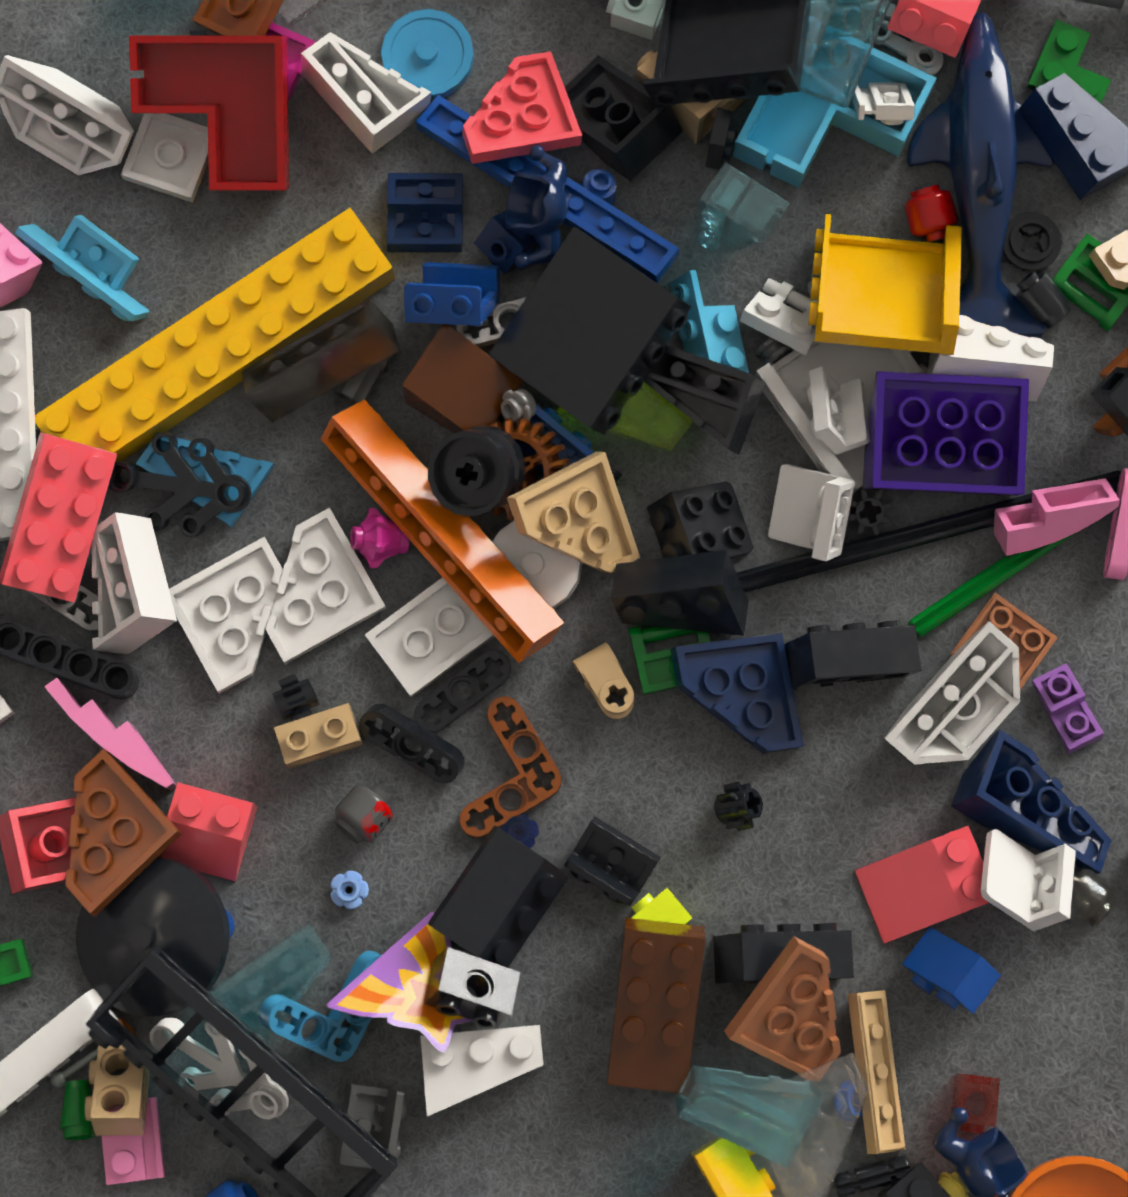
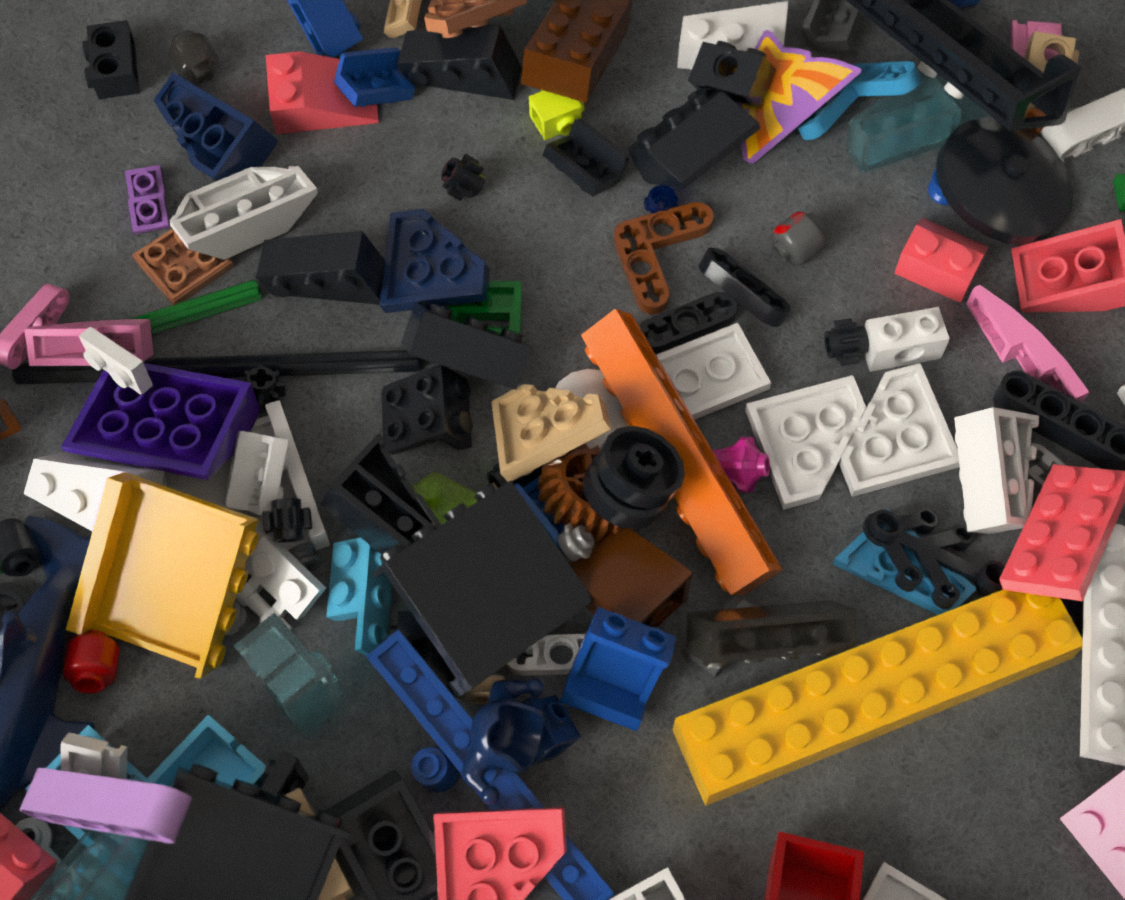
camera: 165 degrees left, 15 degrees down
(73, 1112) = (1084, 86): green cone -> none
(92, 260) = (1007, 815): medium azure bracket -> none
(112, 832) = (1035, 254): dark orange plate -> none
(236, 714) = (905, 339): none -> white brick
(318, 736) = (821, 302): tan brick -> none
(359, 892) = (822, 196): light blue plate -> none
(425, 212) = (625, 793): dark blue slope -> none
(603, 676) = (553, 301): tan piece -> none
(792, 363) = (287, 520): none -> black gear
(811, 510) = (313, 393): white bracket -> none
(851, 50) = (106, 804): none -> lavender beam
(871, 905) = (372, 77): none -> blue bracket
(1025, 480) = (121, 364): none -> white plate
(1028, 885) = (233, 62): white bracket -> none

